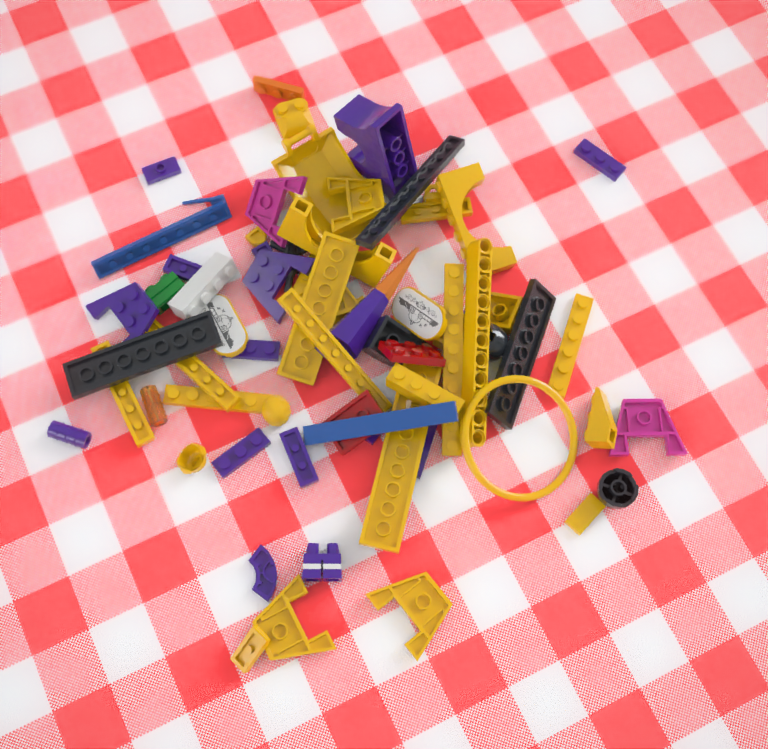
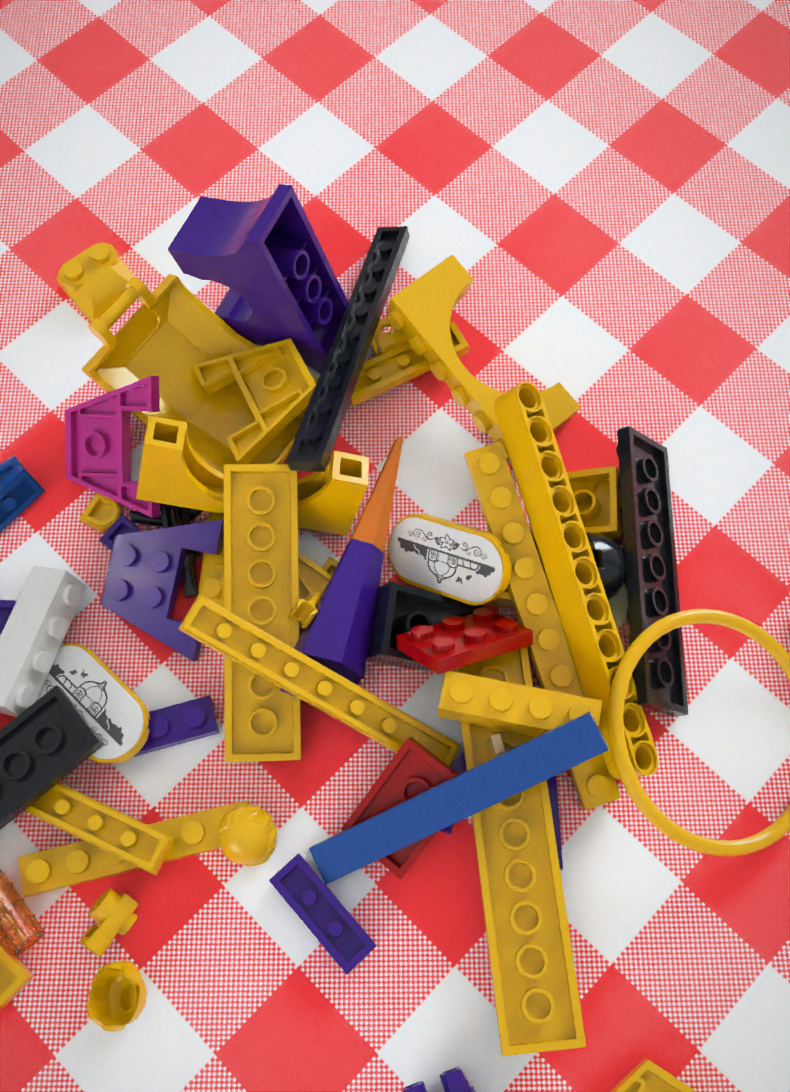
camera: 15 degrees left, 0 degrees up
(201, 424) = (113, 916): none -> yellow plate
(241, 453) = (208, 944): dark purple plate -> none
(277, 89) = (51, 240): orange plate -> none
(338, 314) = (305, 610): none -> yellow hand
(570, 344) = (723, 522): yellow plate -> none
(599, 160) = (640, 193): dark purple plate -> none

